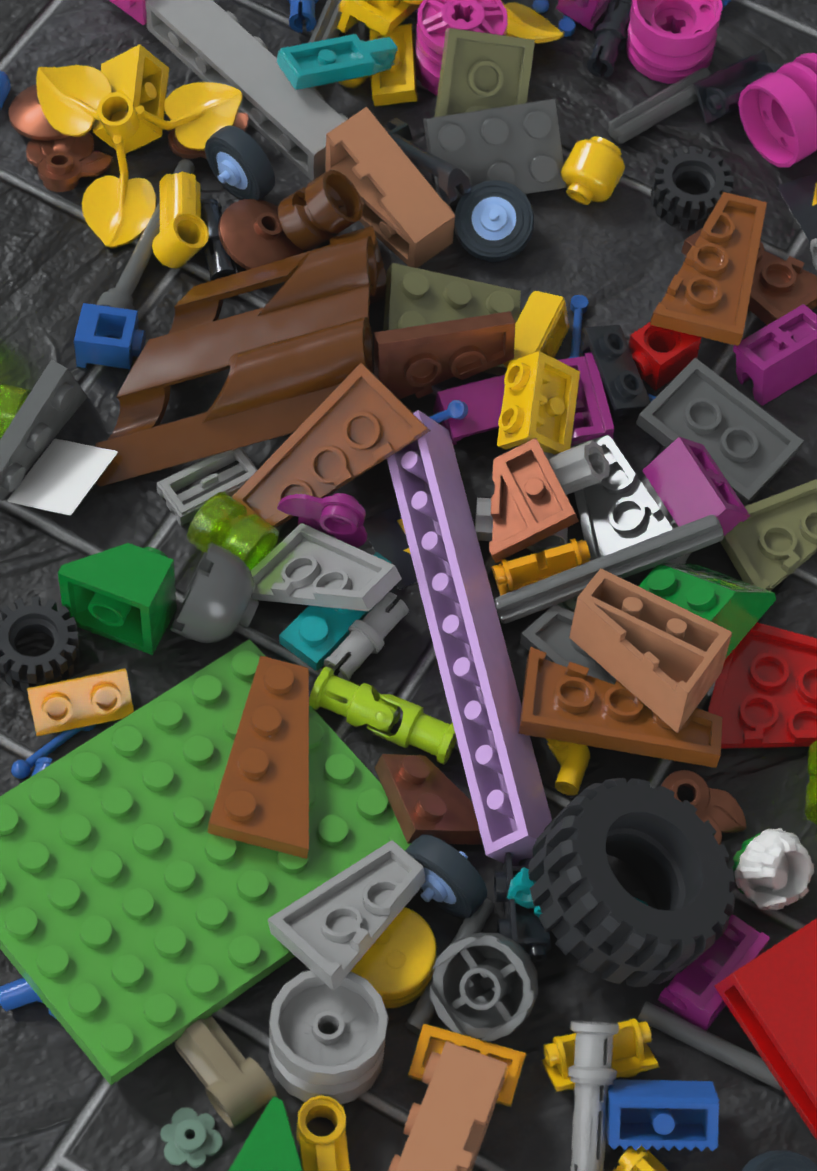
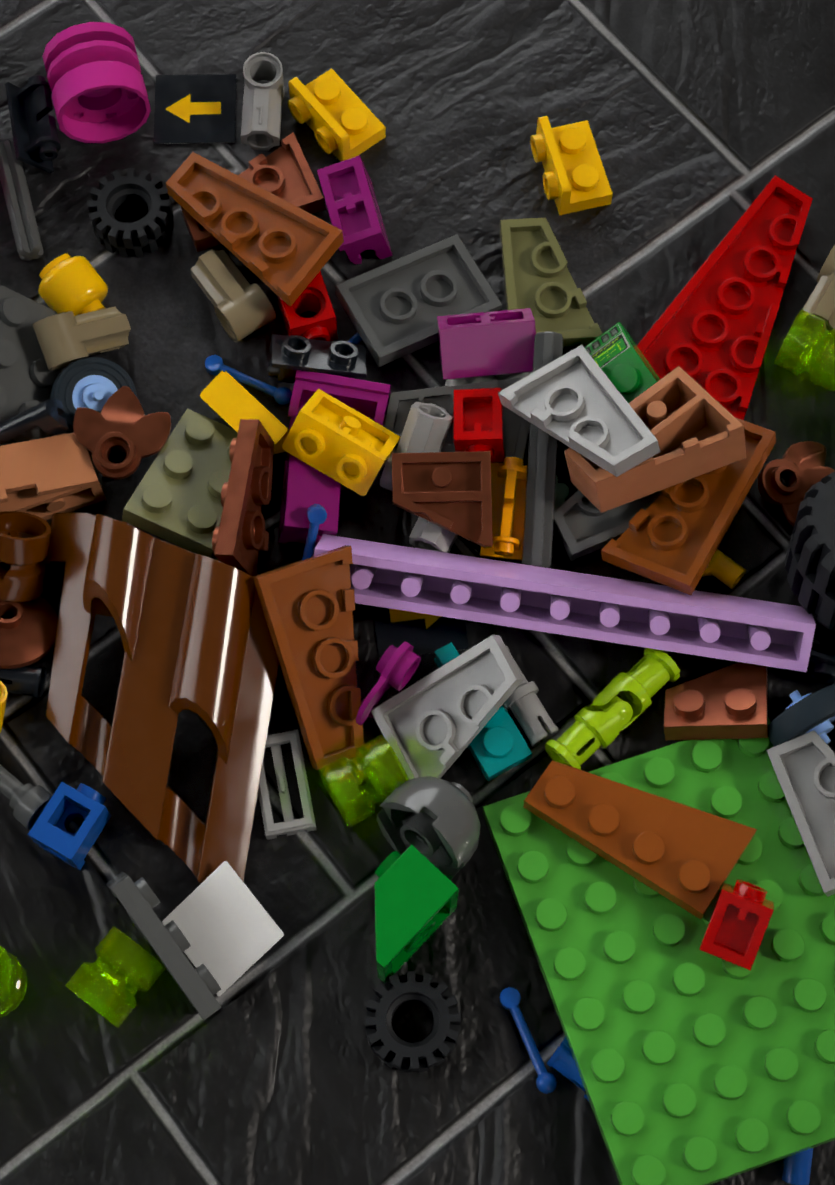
camera: 65 degrees left, 10 degrees up
(80, 702) = (501, 978): light orange hinge -> none
(210, 851) = (738, 923): none -> red bracket
(472, 241) = (121, 427): none -> copper plate
(538, 178) = (72, 337): none -> dark tan piece
(606, 505) = (479, 422): none -> red bracket
(639, 296) = (237, 304): none -> dark tan piece
(643, 564) = (584, 411): none -> light grey wing

